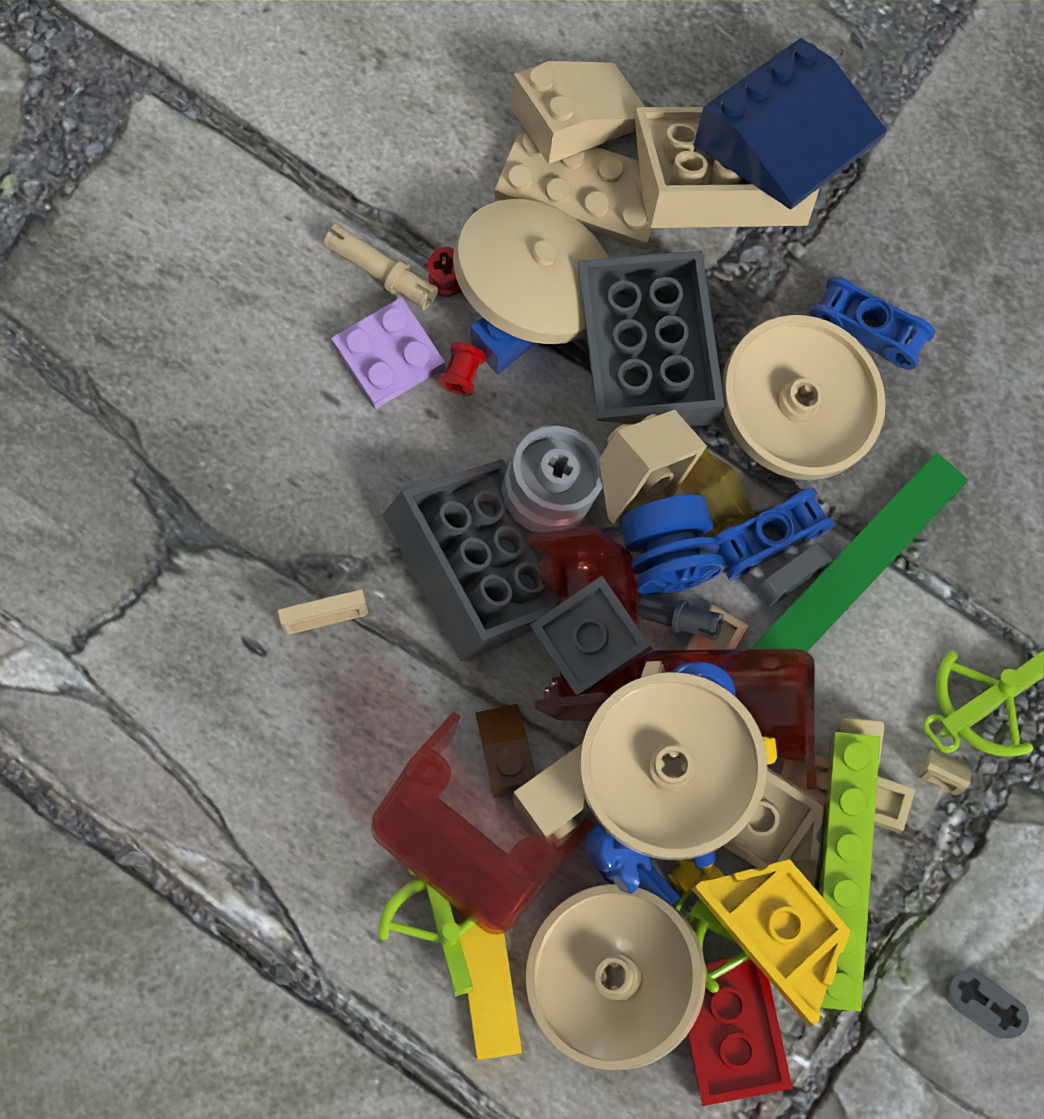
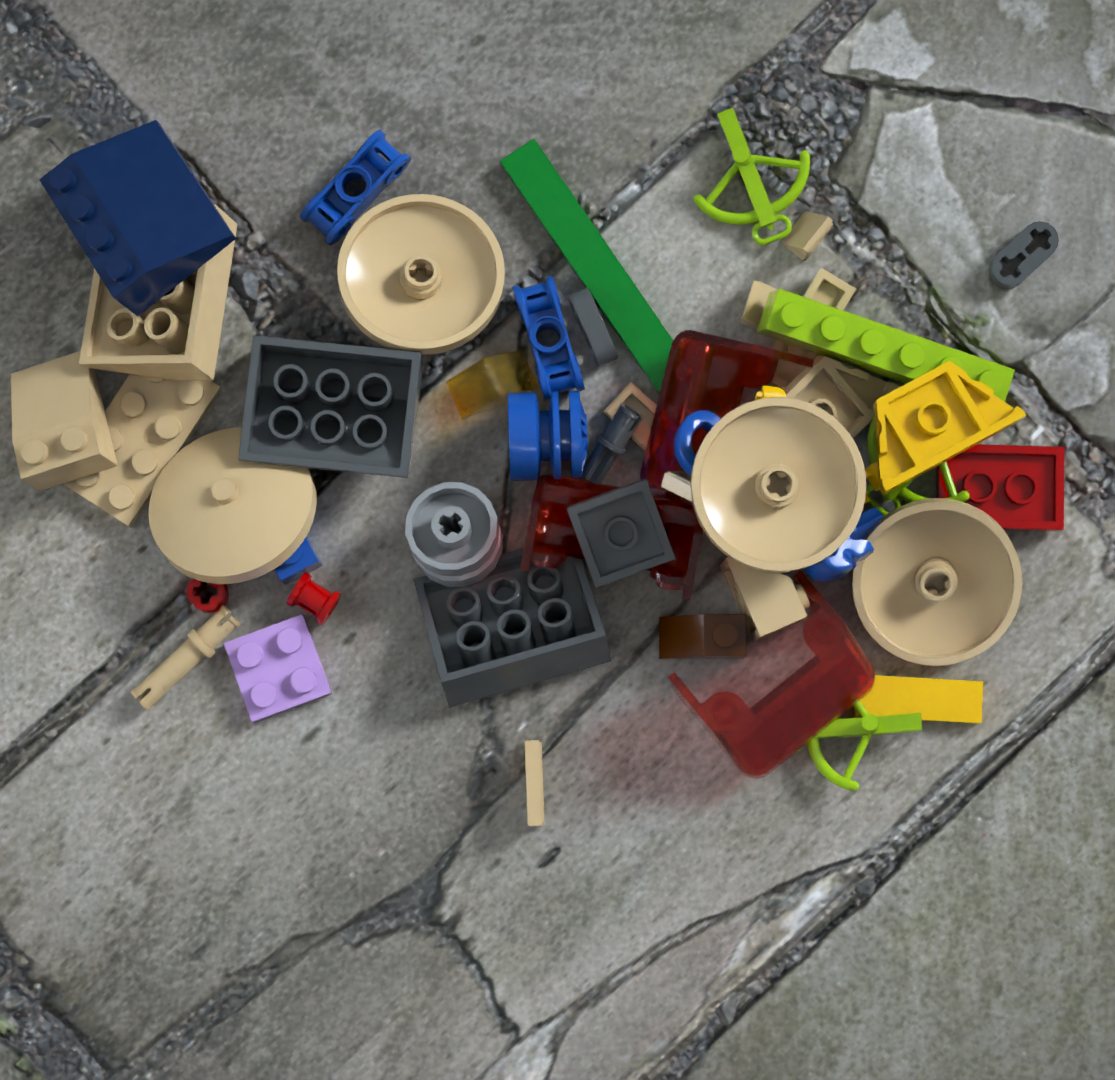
camera: 80 degrees left, 10 degrees up
(647, 462) = (460, 439): tan slope -> none

